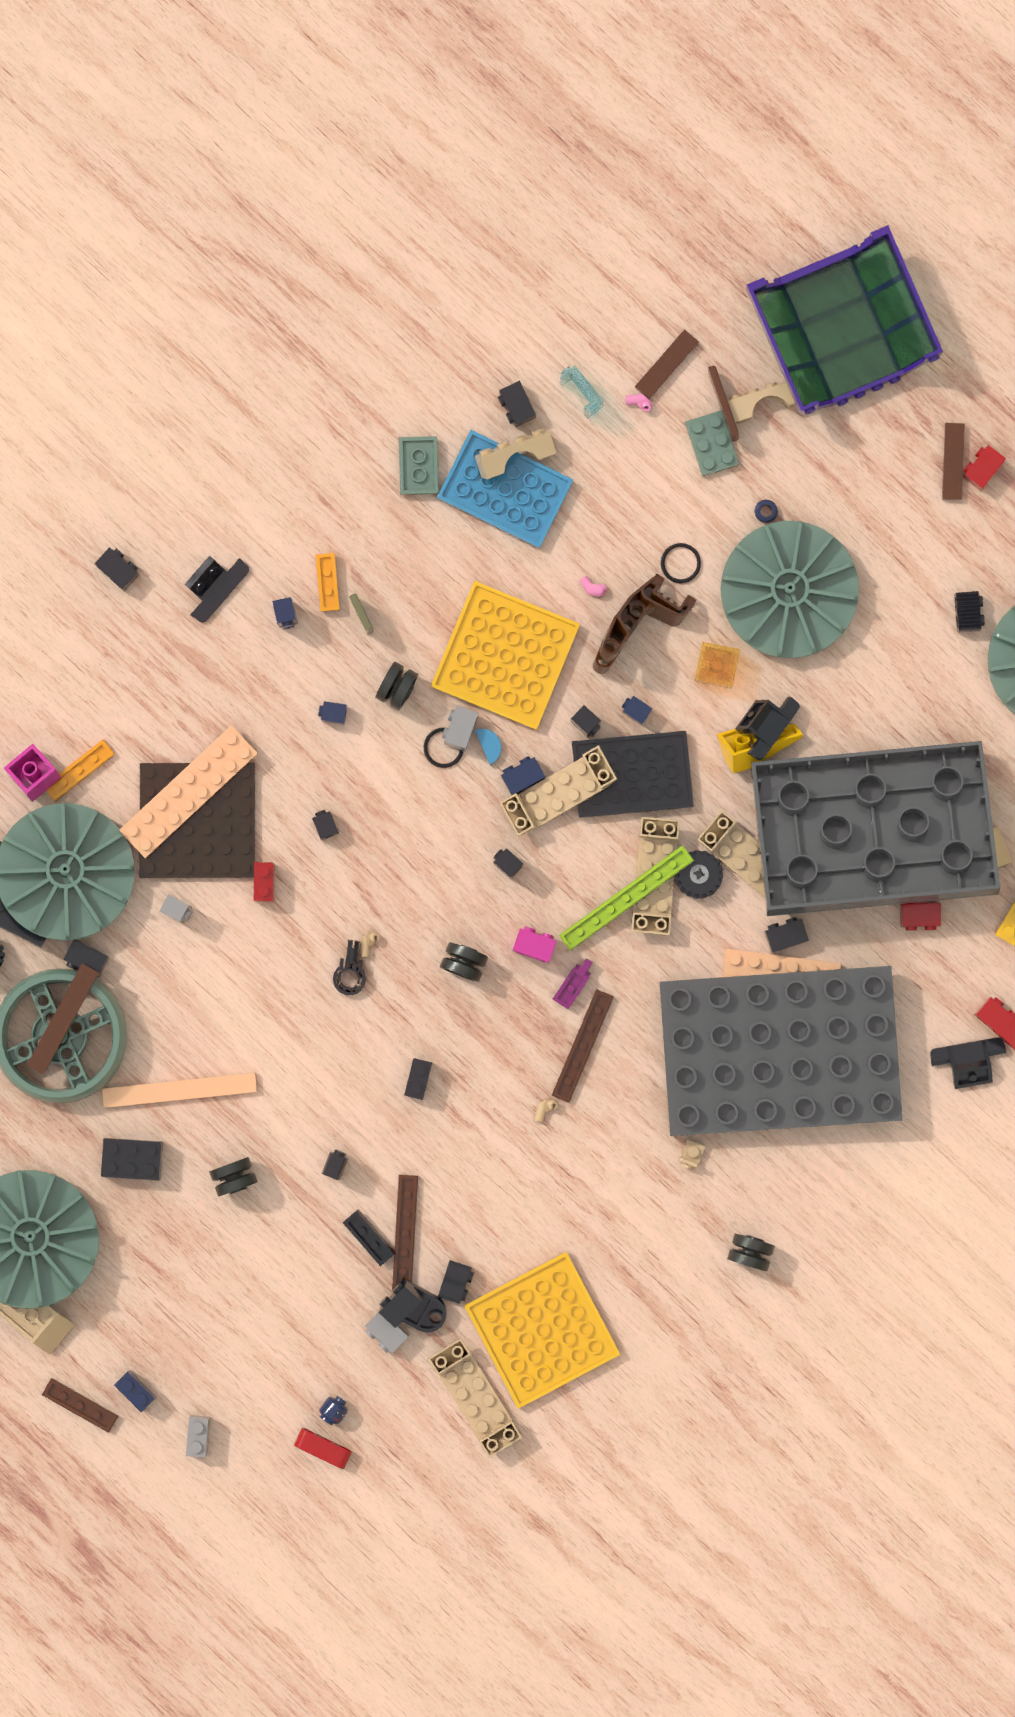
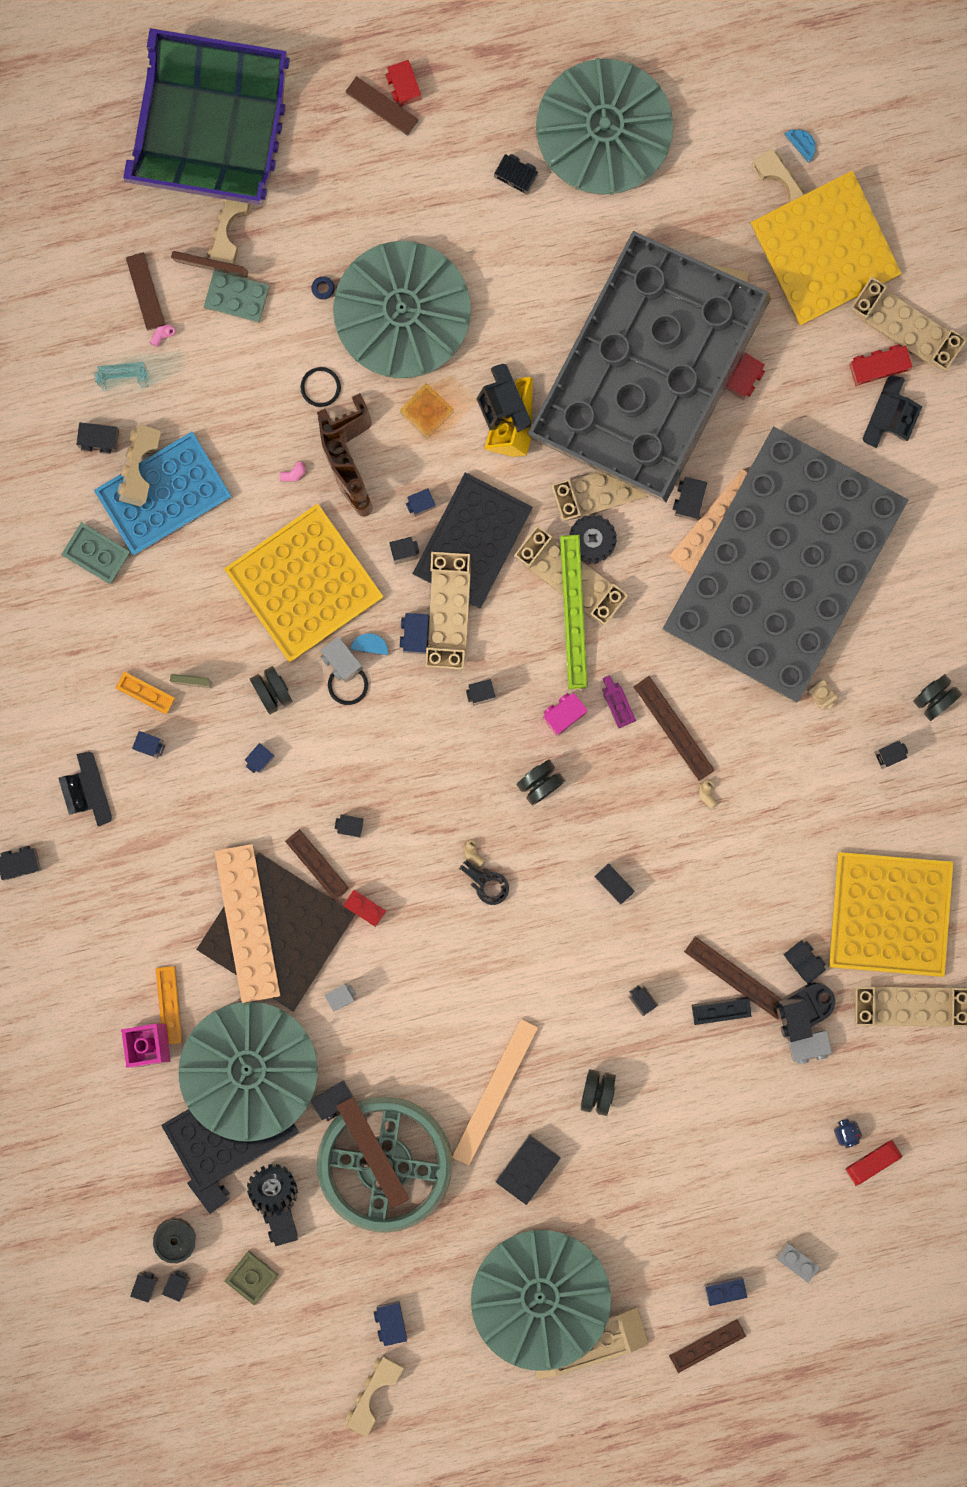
camera: 65 degrees left, 0 degrees up
(275, 818) = (317, 864): none -> reddish brown tile
(677, 1244) = (891, 754): none -> black brick

